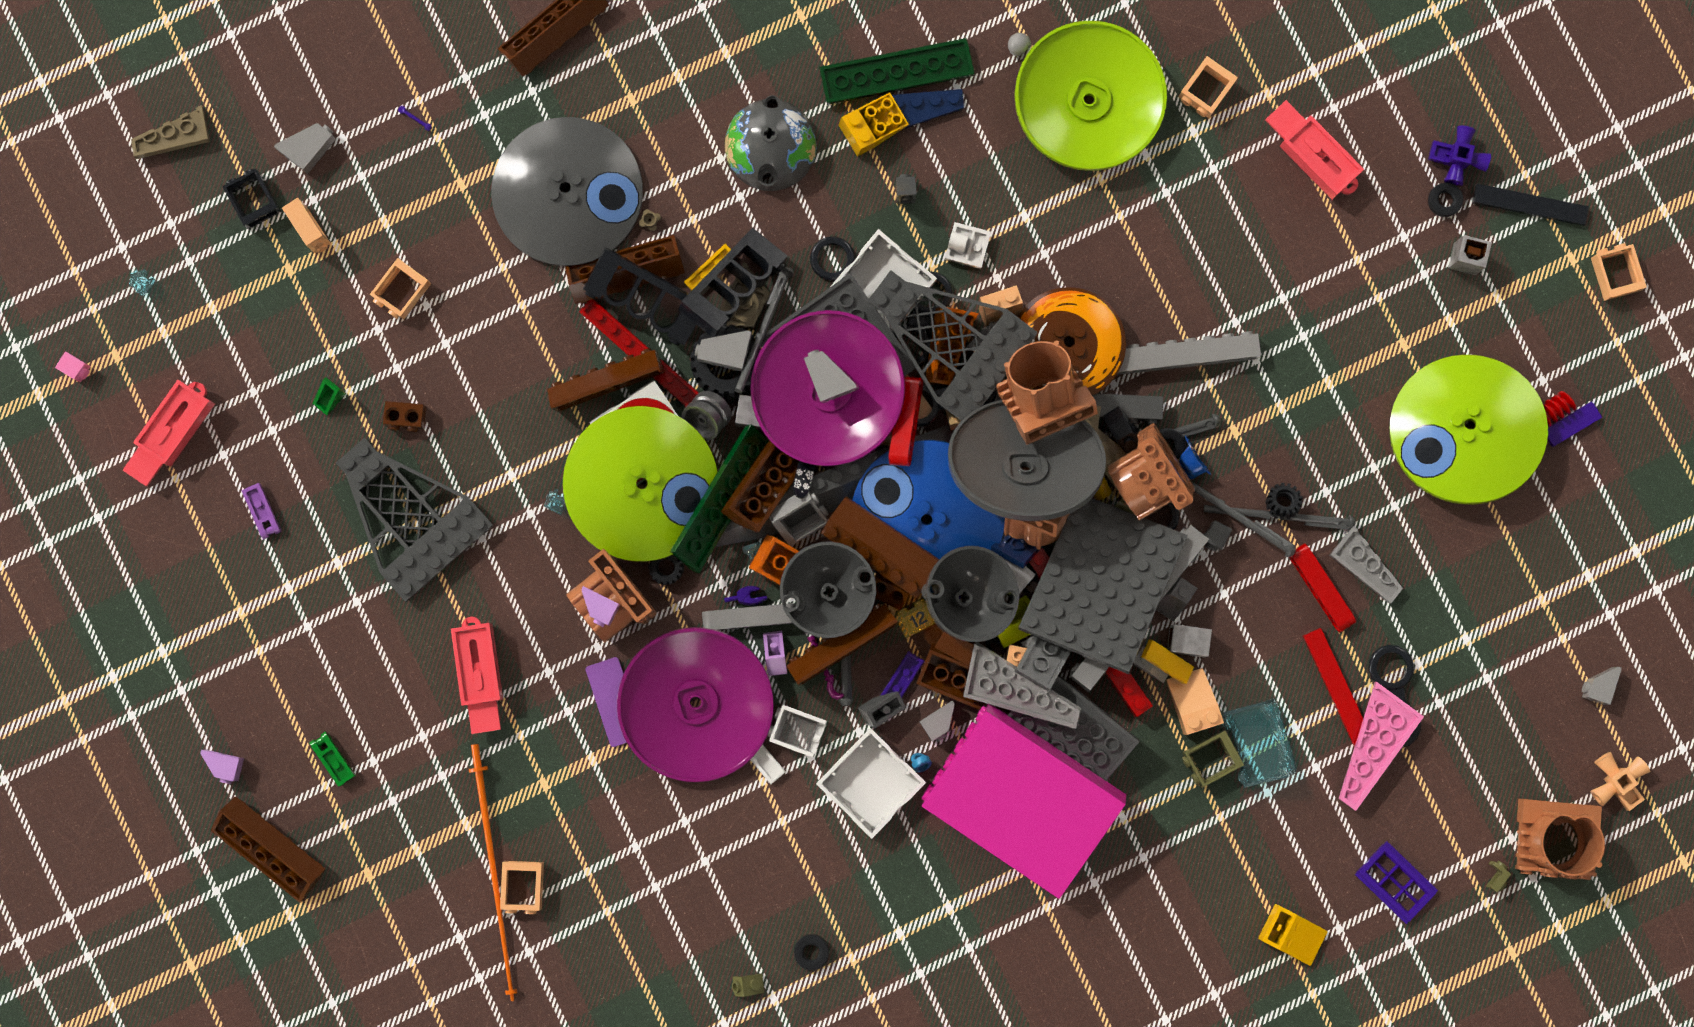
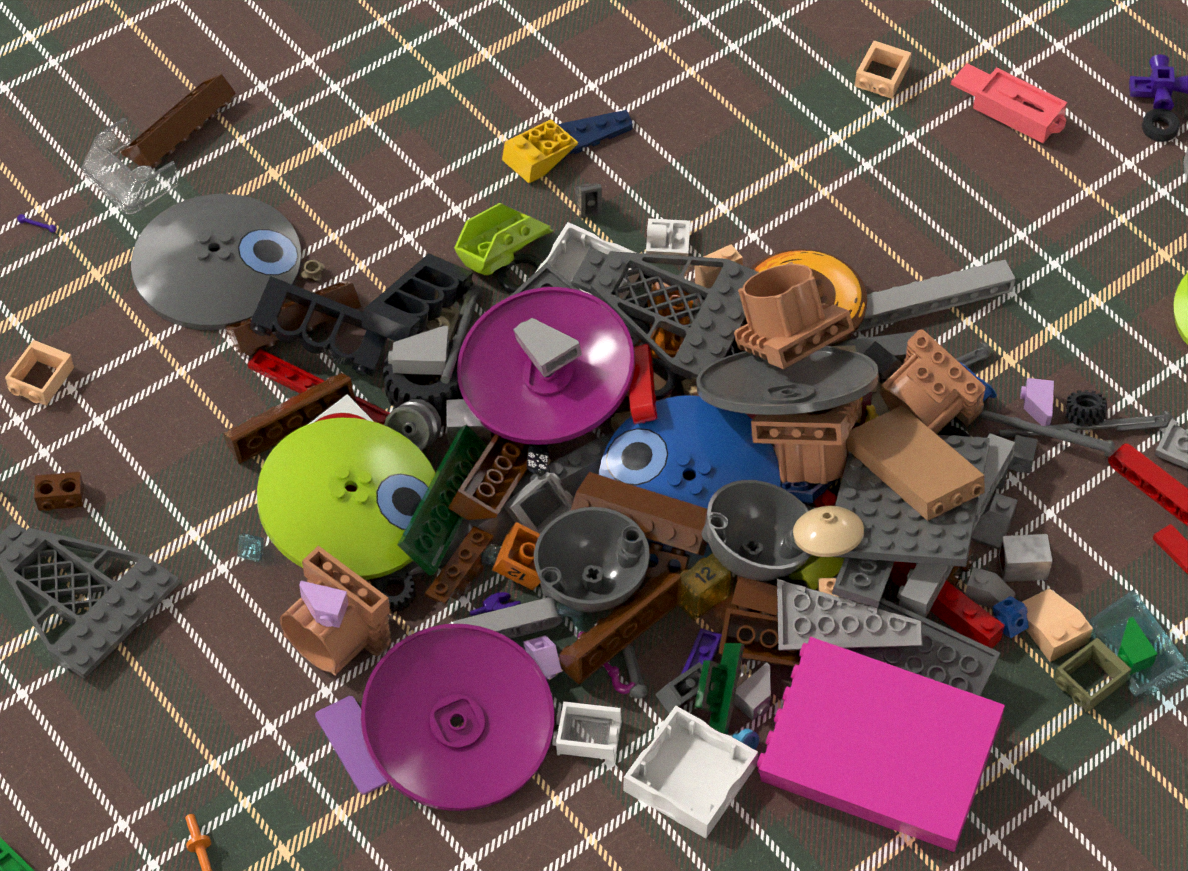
camera: 10 degrees left, 30 degrees down
(478, 673) = (184, 735): coral piece -> none
(499, 102) = (124, 187): none -> clear windscreen
(726, 557) = (461, 568): none -> reddish brown bracket
(767, 765) = (558, 778): white tile -> none
(787, 153) = (432, 184): dark grey piece -> none
(817, 221) = (494, 237): none -> lime slope
(896, 71) = (554, 103): dark green plate -> none
(908, 719) = (719, 686): none -> dark green bracket
(1018, 44) = (676, 63): light grey piece -> none
(1022, 623) = (828, 531): none -> tan dish
(1095, 62) = (770, 62): lime dish -> none
(1116, 557) = (915, 462): none -> medium nougat brick
(1161, 694) = (1012, 615): none -> blue brick
(1167, 661) = (1007, 577): yellow tile -> none
(1246, 483) = (1038, 399): none -> lavender slope
(1253, 744) = (1135, 648): none -> green slope

